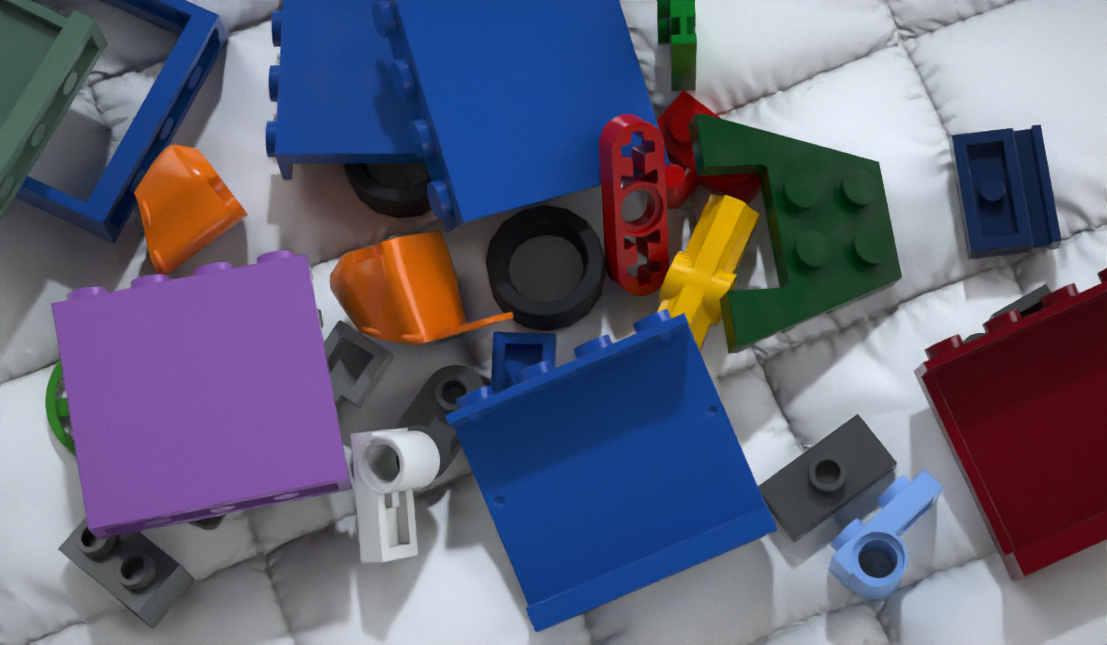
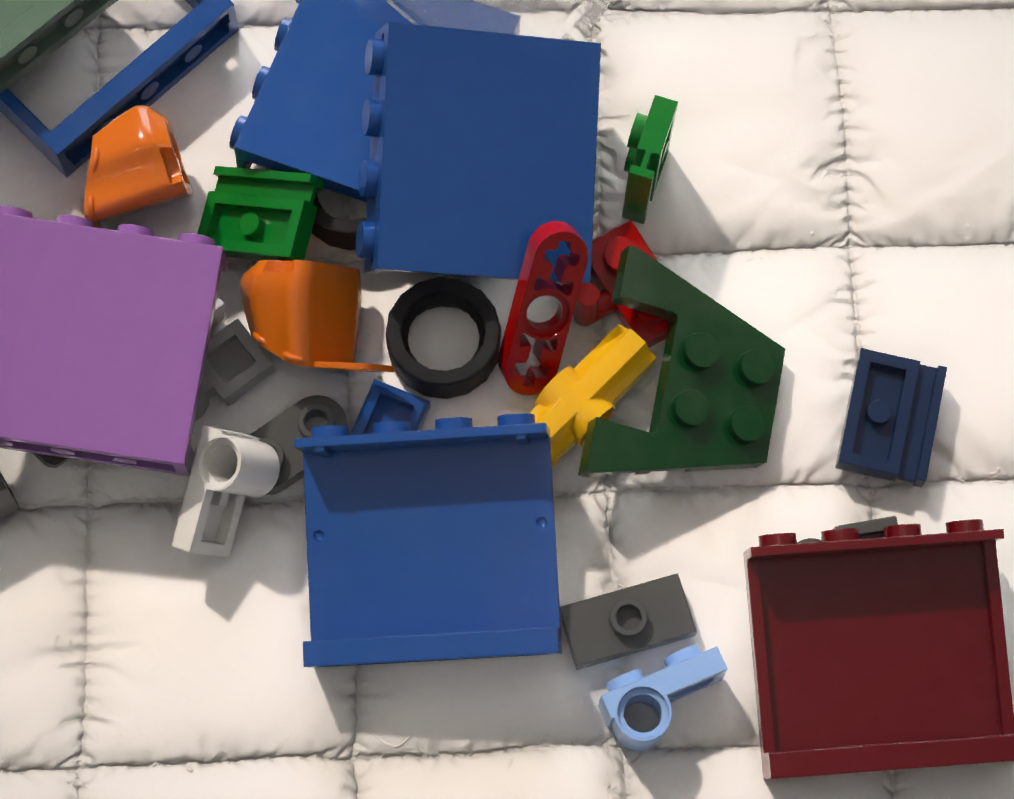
camera: 10 degrees right, 0 degrees up
(323, 209) = (261, 213): none -> green plate

